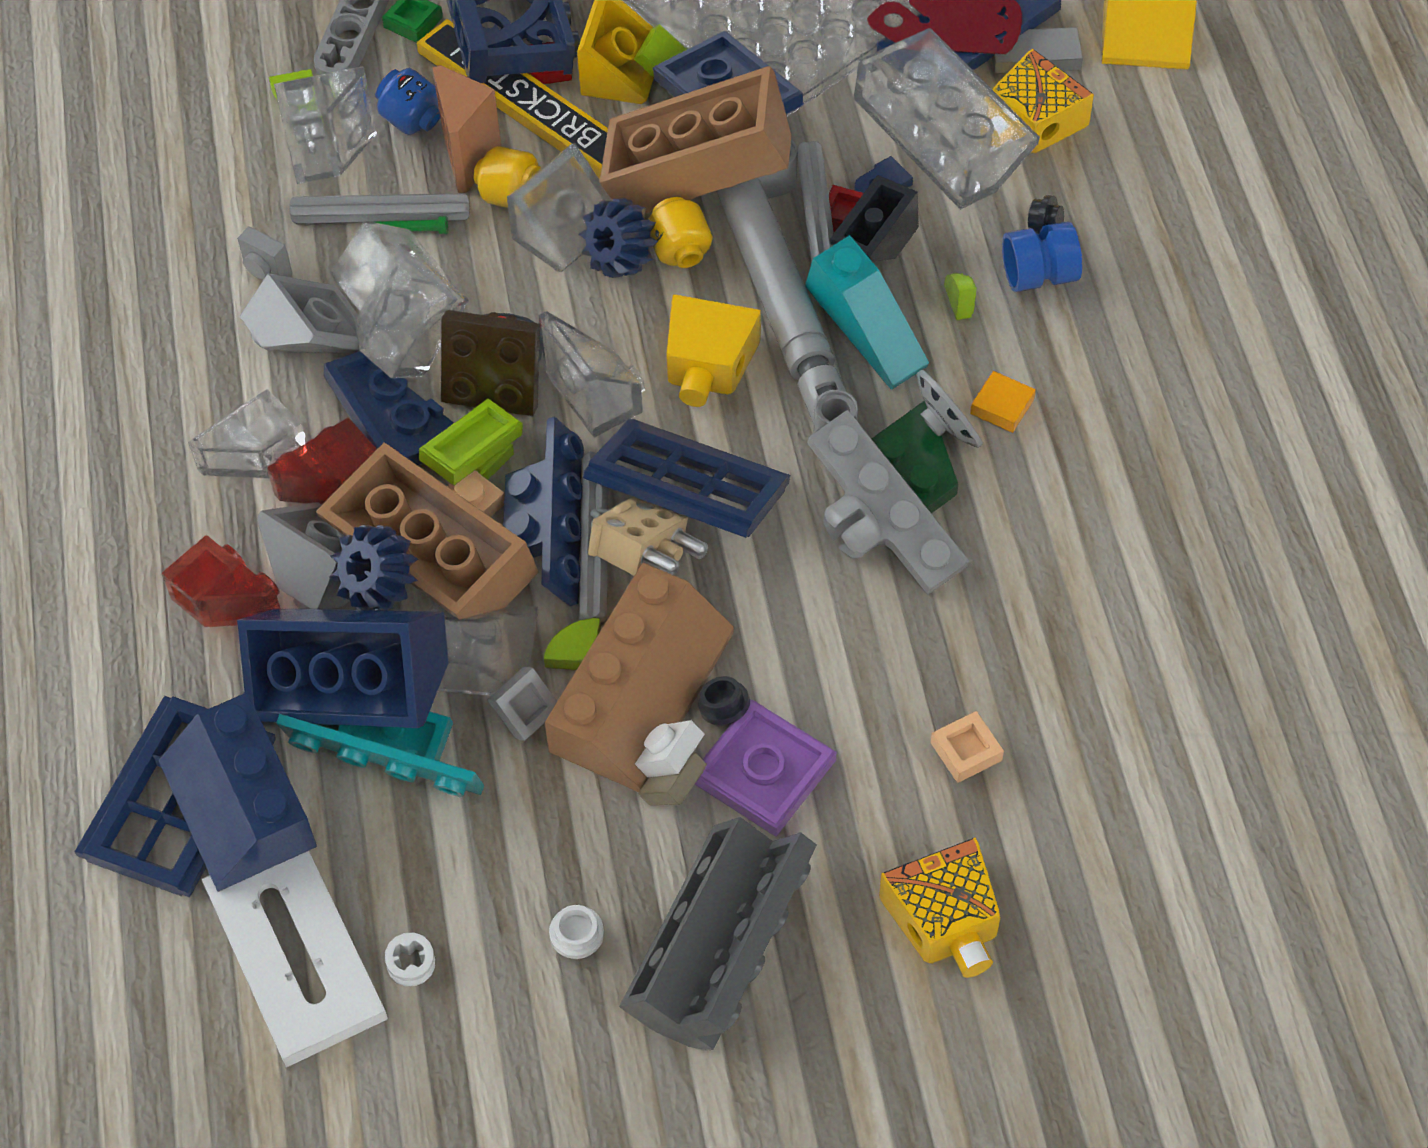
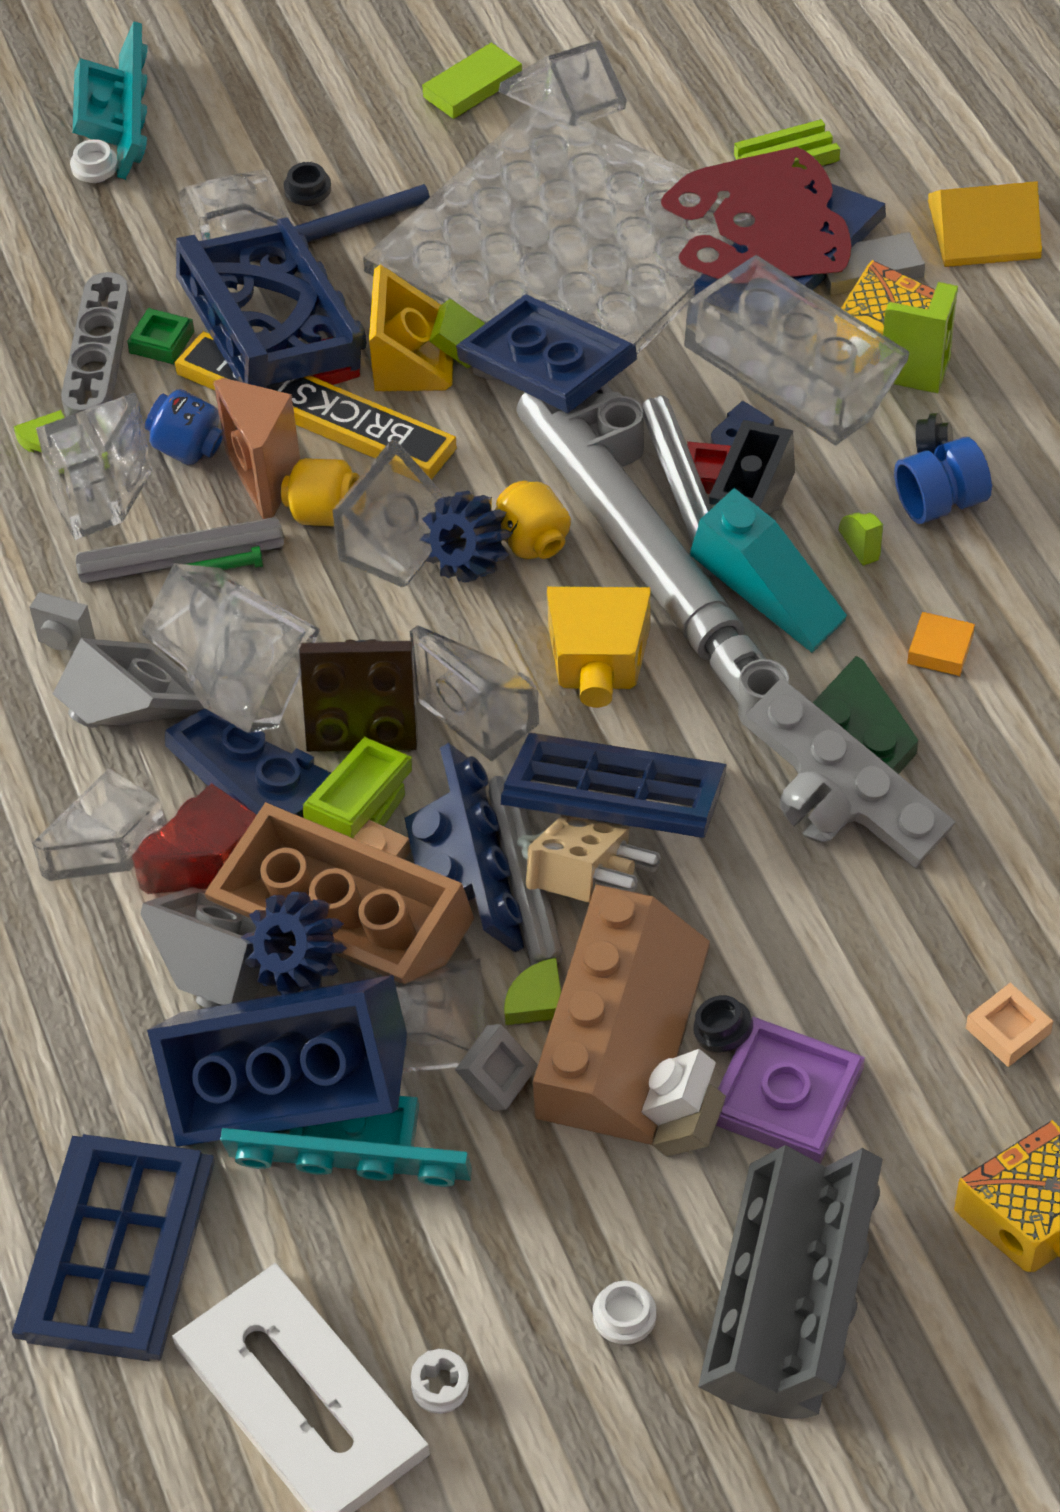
camera: 10 degrees left, 5 degrees down
(218, 586) = (105, 1000): clear red slope -> none
(235, 793) = (192, 1228): dark blue slope -> none
(698, 141) = (534, 415): medium nougat slope -> none
(943, 413) = (886, 662): light grey dish -> none
(1059, 127) = (926, 336): none -> lime panel

